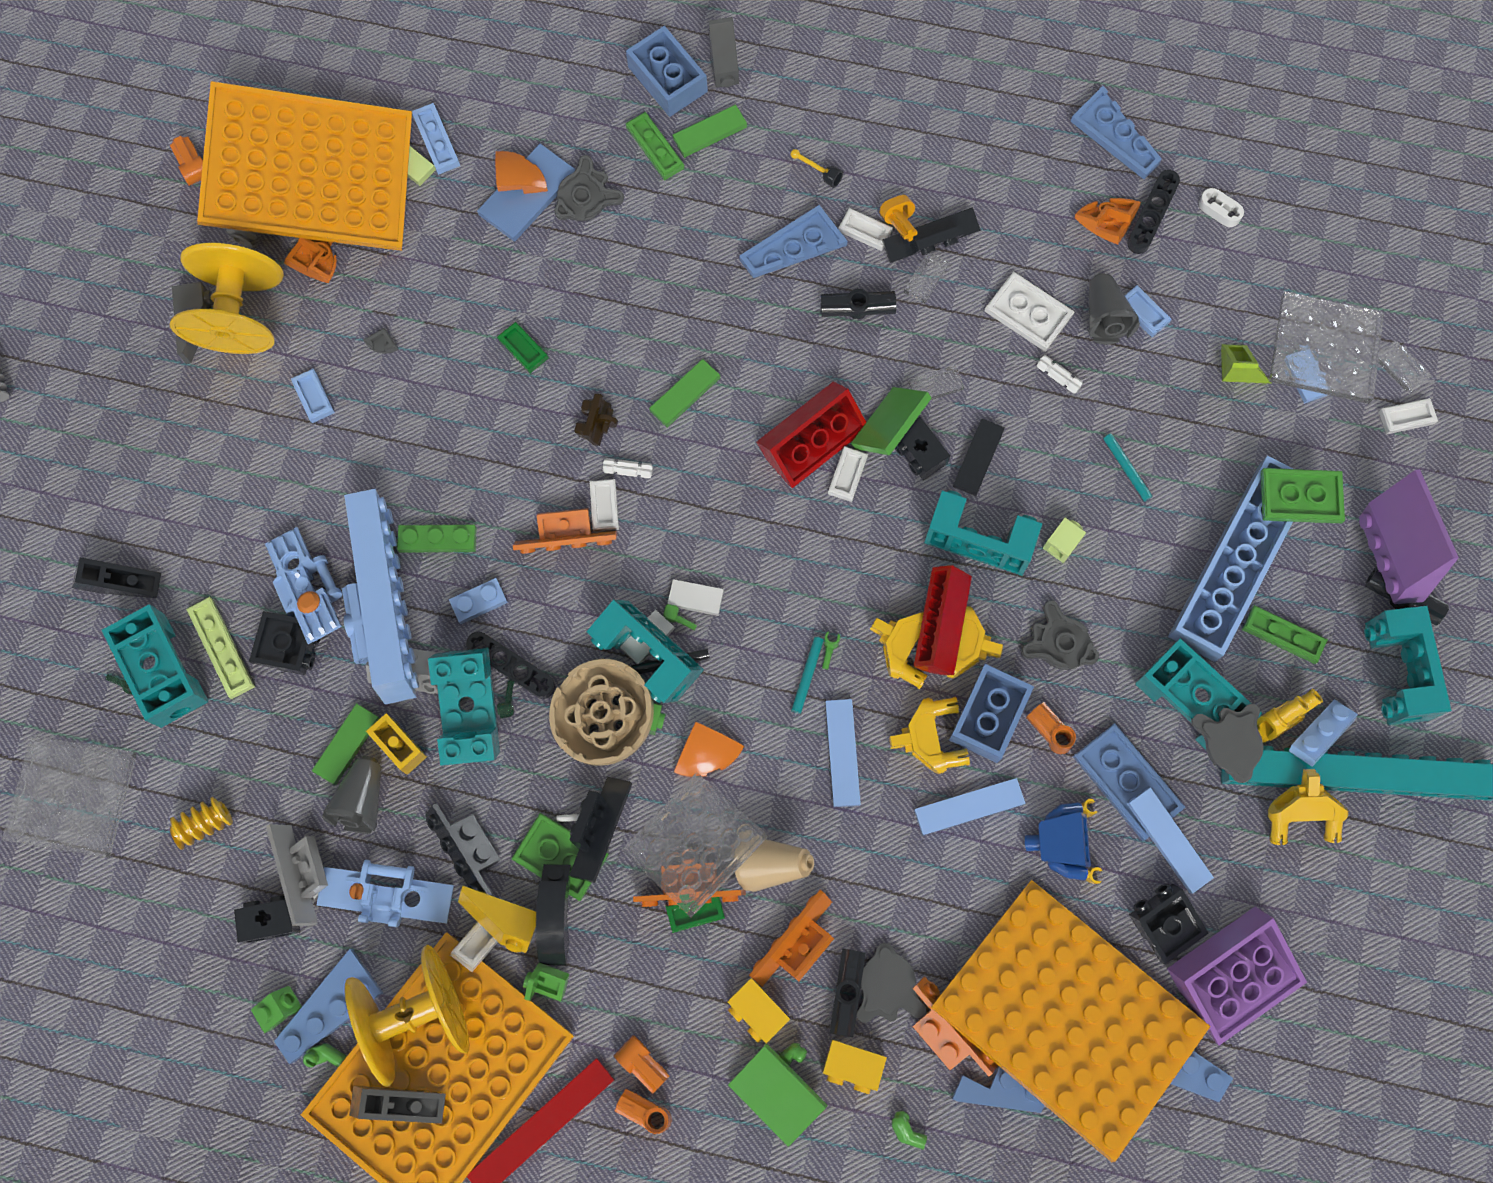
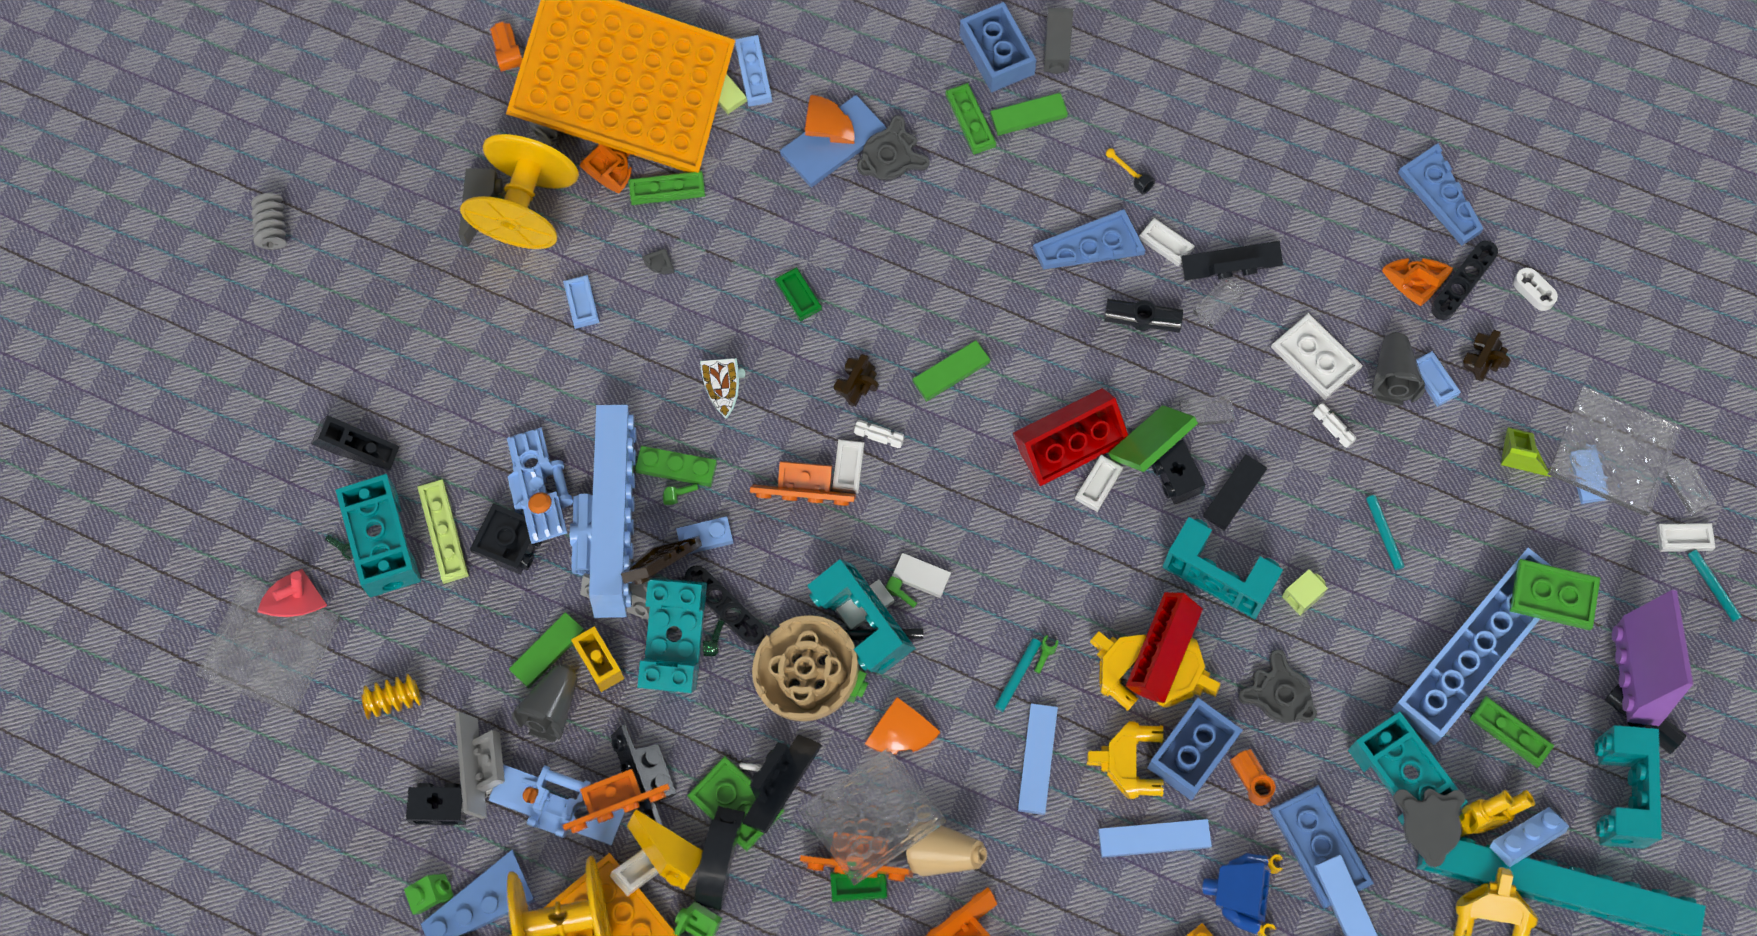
camera: 10 degrees right, 5 degrees down
(82, 743) = (291, 597): none -> coral shield
(374, 268) = (666, 188): none -> bright green tile
(434, 635) = (657, 559): none -> dark brown wing
(435, 877) = (613, 795): none -> orange bracket
(437, 566) = (670, 493): none -> bright green hand
(465, 448) = (722, 383): none -> shield
(896, 212) = (1200, 234): light orange piece -> none
(1193, 277) = (1491, 357): none -> dark brown hips
(1444, 456) = (1714, 585): none -> teal bar

